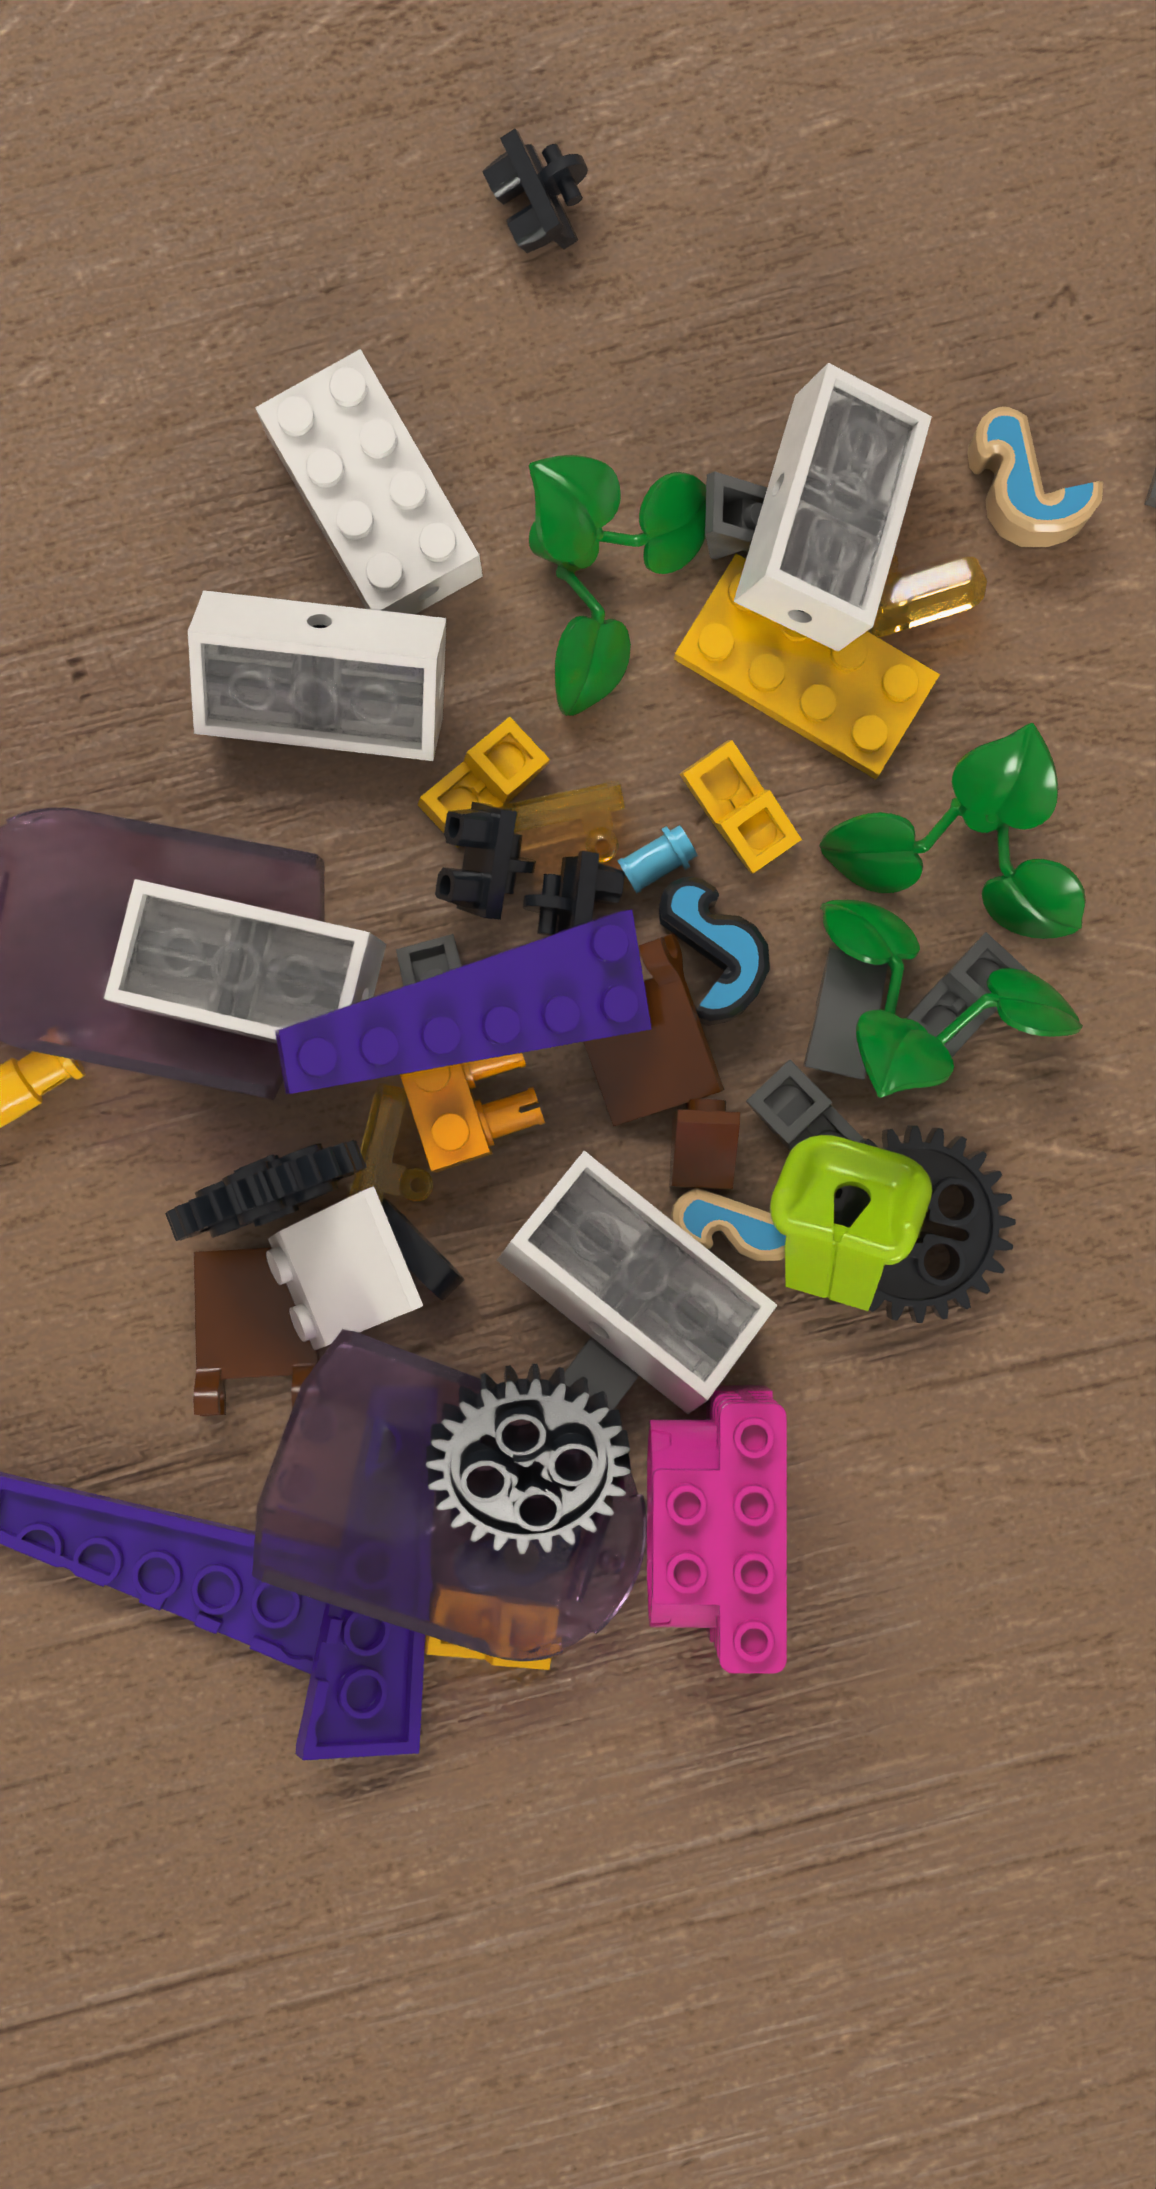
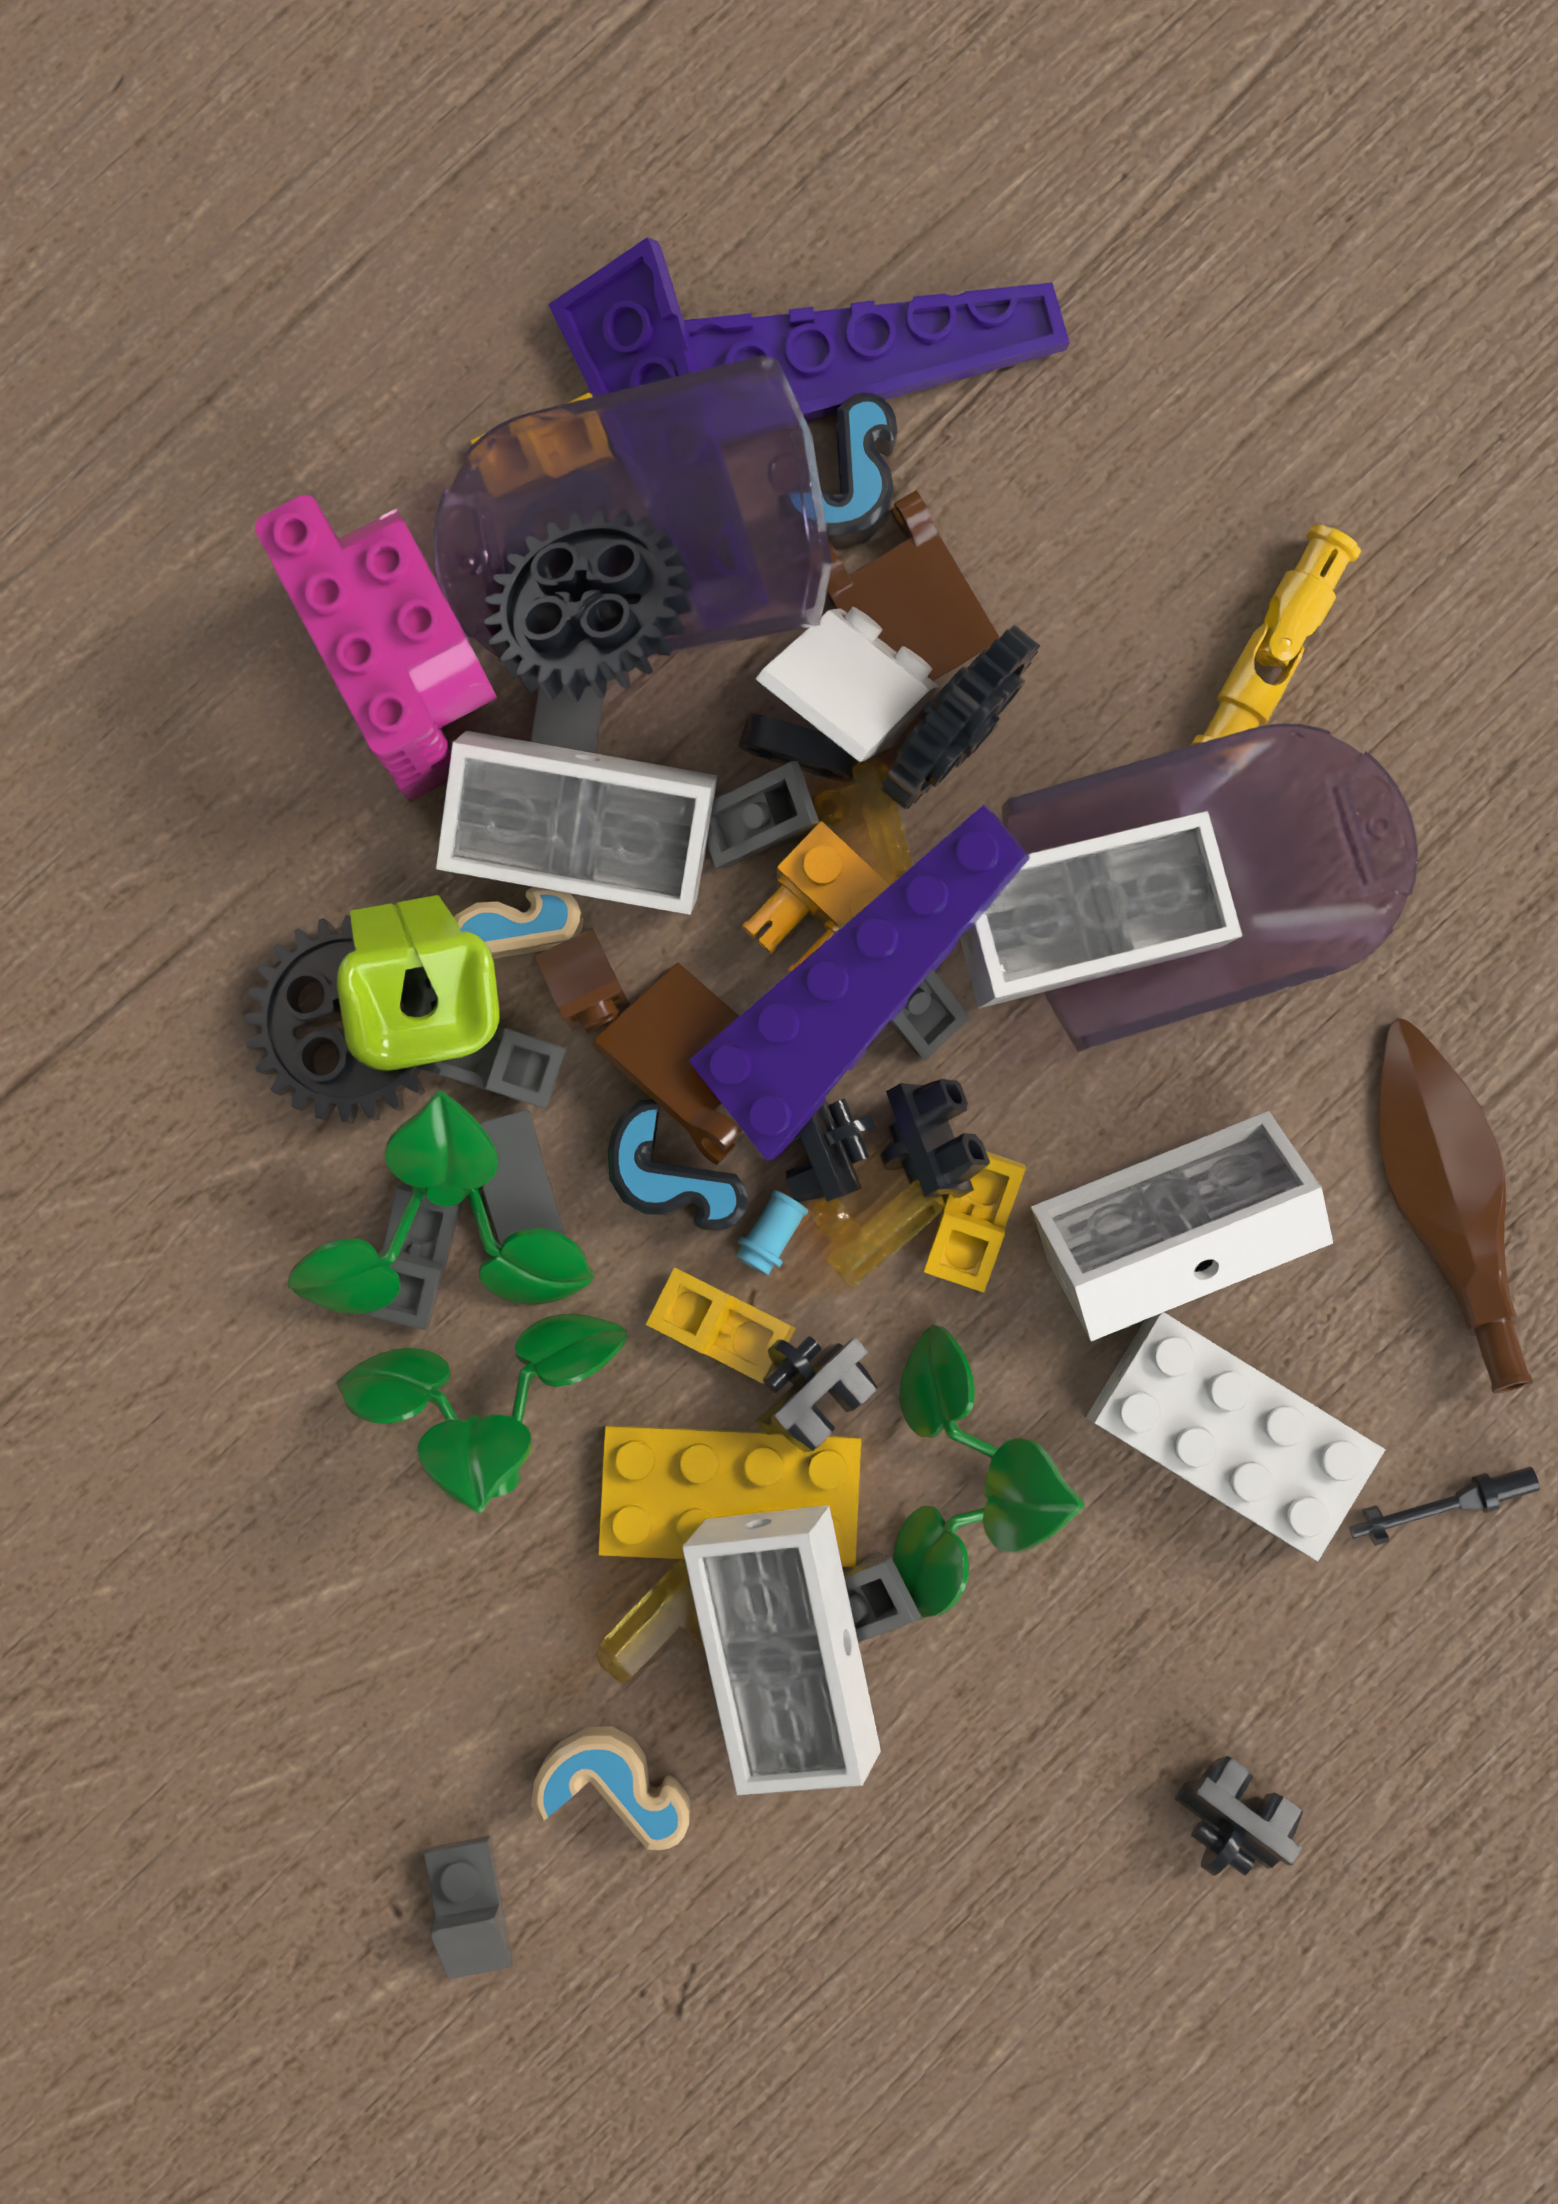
camera: 145 degrees right, 0 degrees up
(81, 595) = (1451, 1190): none -> reddish brown animal
(196, 342) = (1482, 1494): none -> black piece
(232, 1451) = (866, 484): none -> black animal
(478, 1206) = (760, 816): none -> dark grey slope
(696, 719) = (835, 1372): none -> black hips

